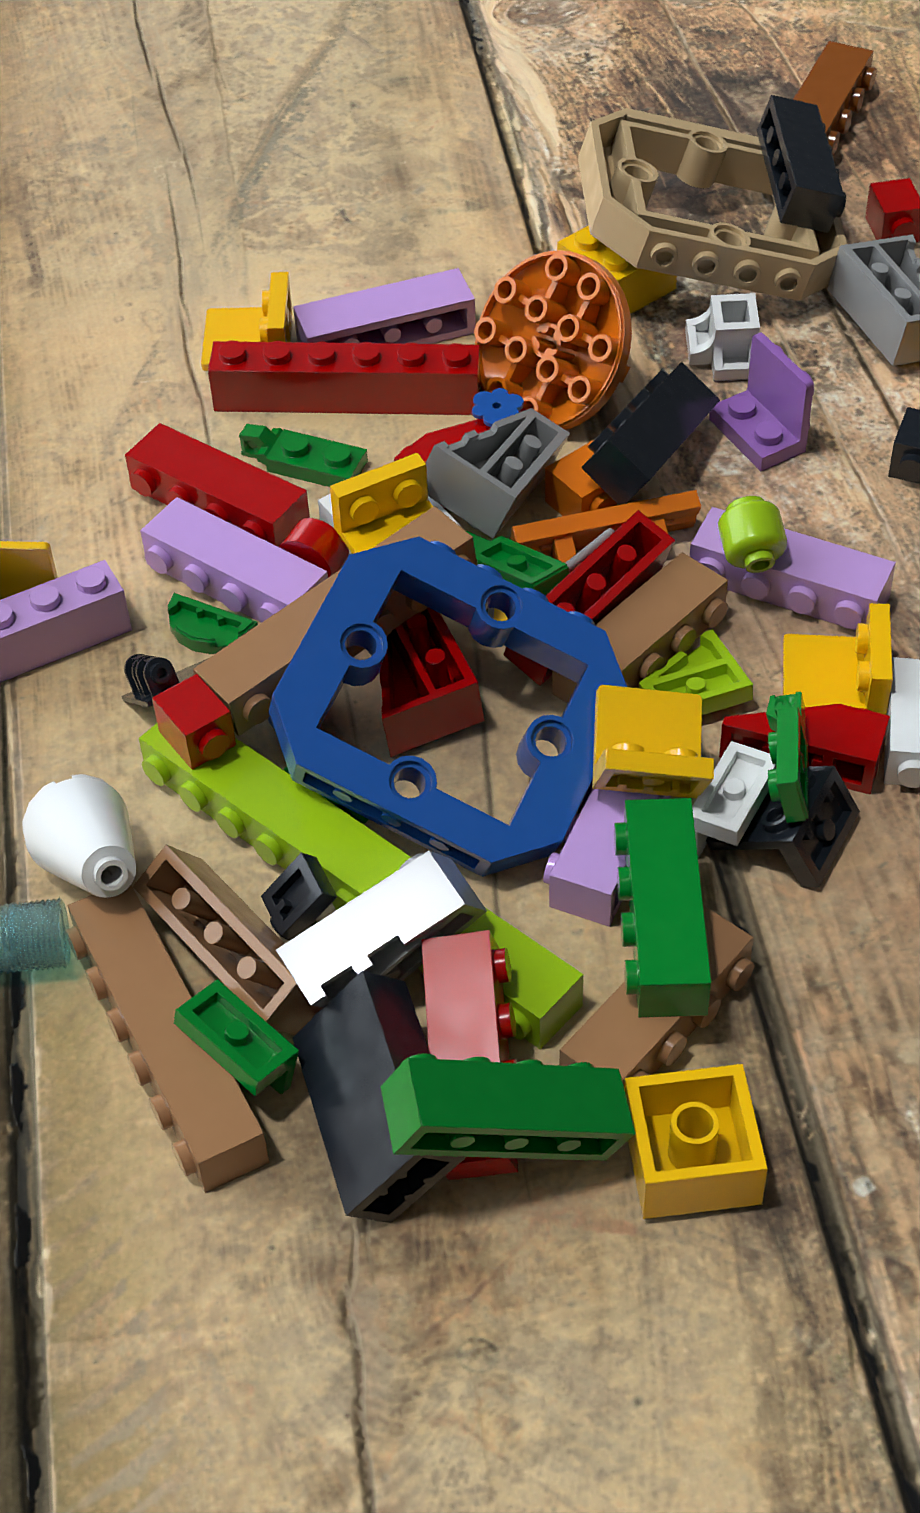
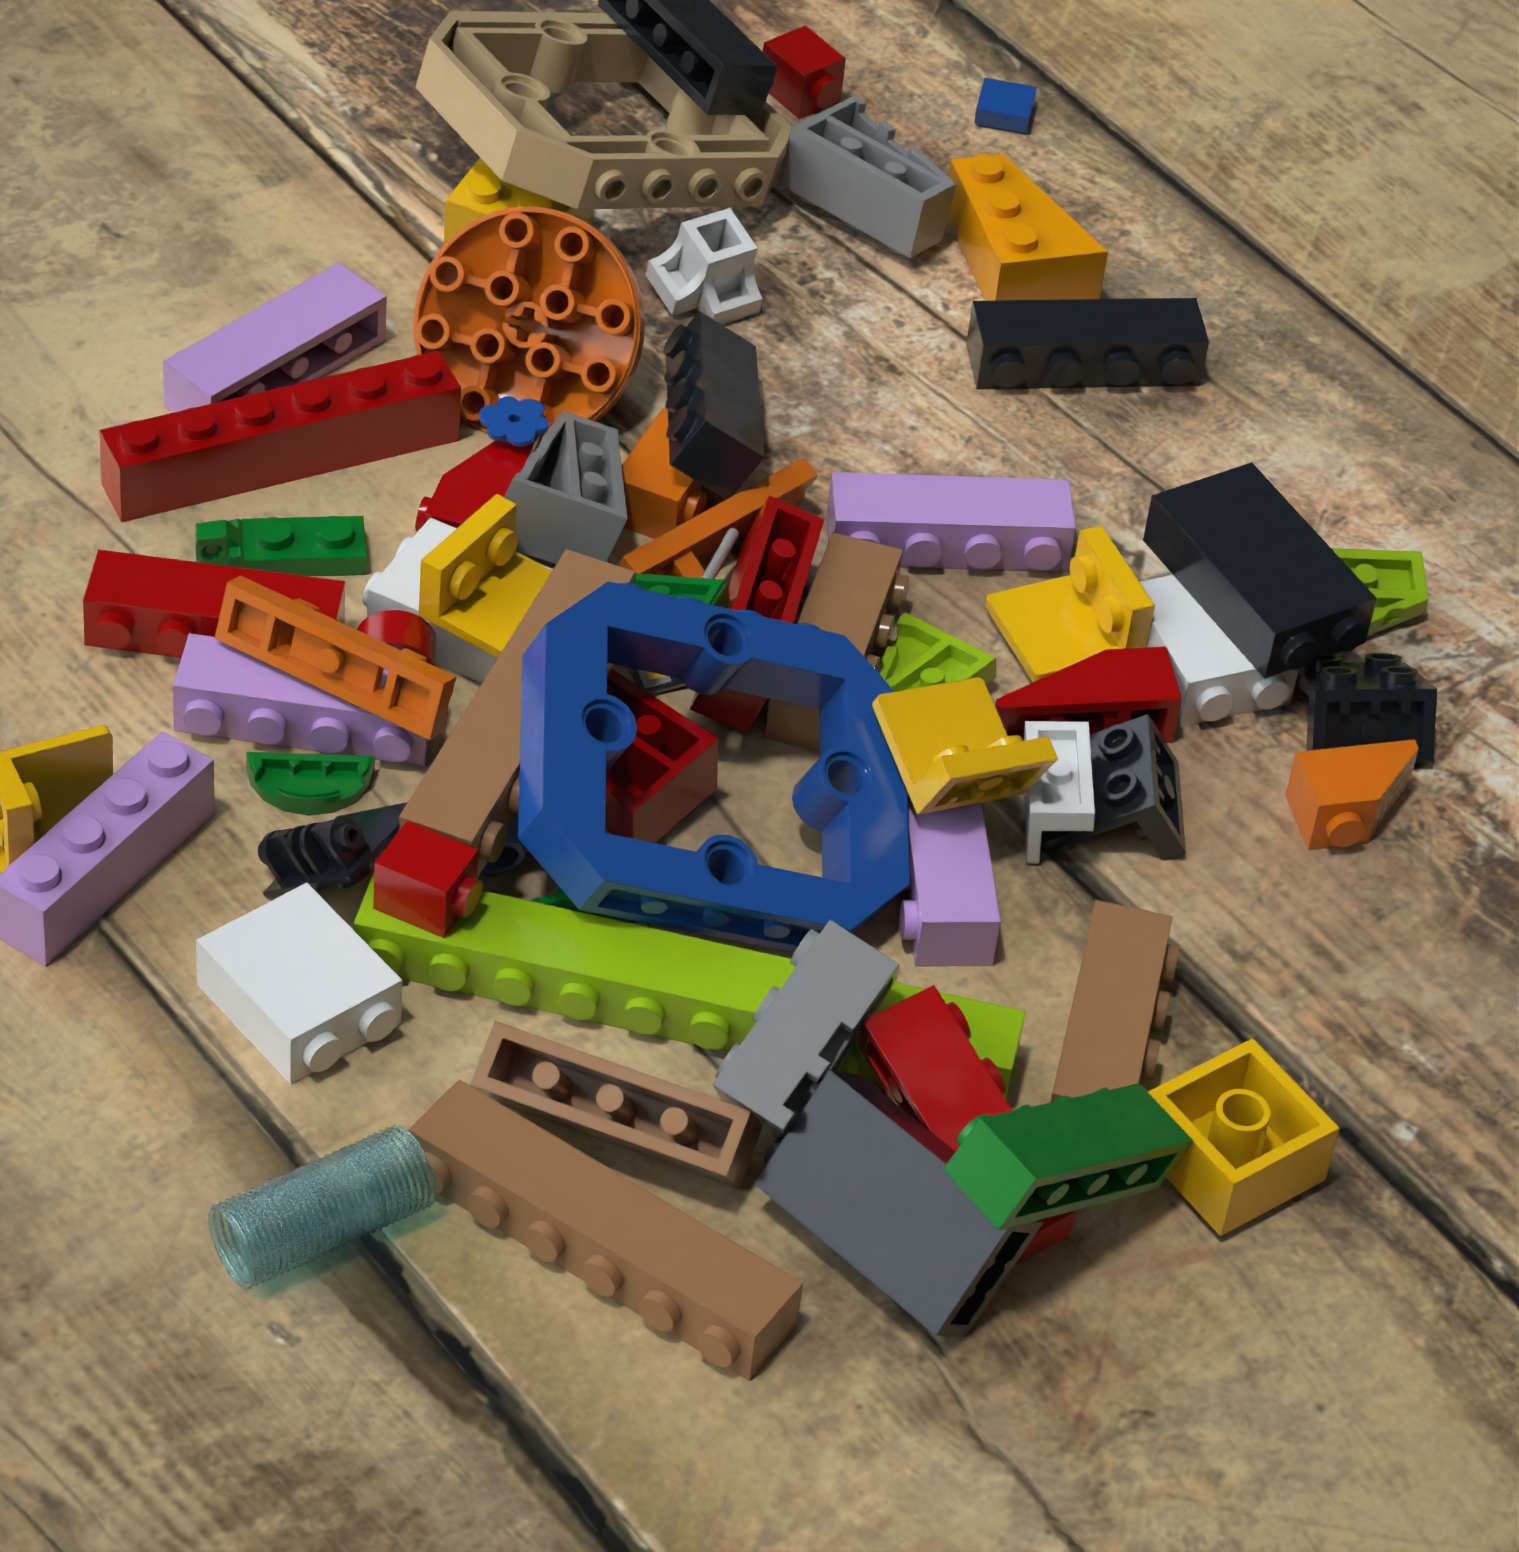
camera: 35 degrees left, 5 degrees down
(82, 835) = (384, 1050): white cone -> none
(91, 742) = (299, 983): none -> white brick
(234, 525) = (335, 657): none -> orange hinge
(238, 1039) = (709, 1197): green panel -> none
(252, 324) = (134, 391): yellow bracket -> none
(298, 896) = (666, 1035): black bracket -> none
(665, 908) = (1078, 910): green brick -> none
(752, 534) = (911, 488): lime head -> none
(774, 412) = (816, 337): medium lavender bracket -> none
(790, 753) = (1105, 707): green hinge -> none

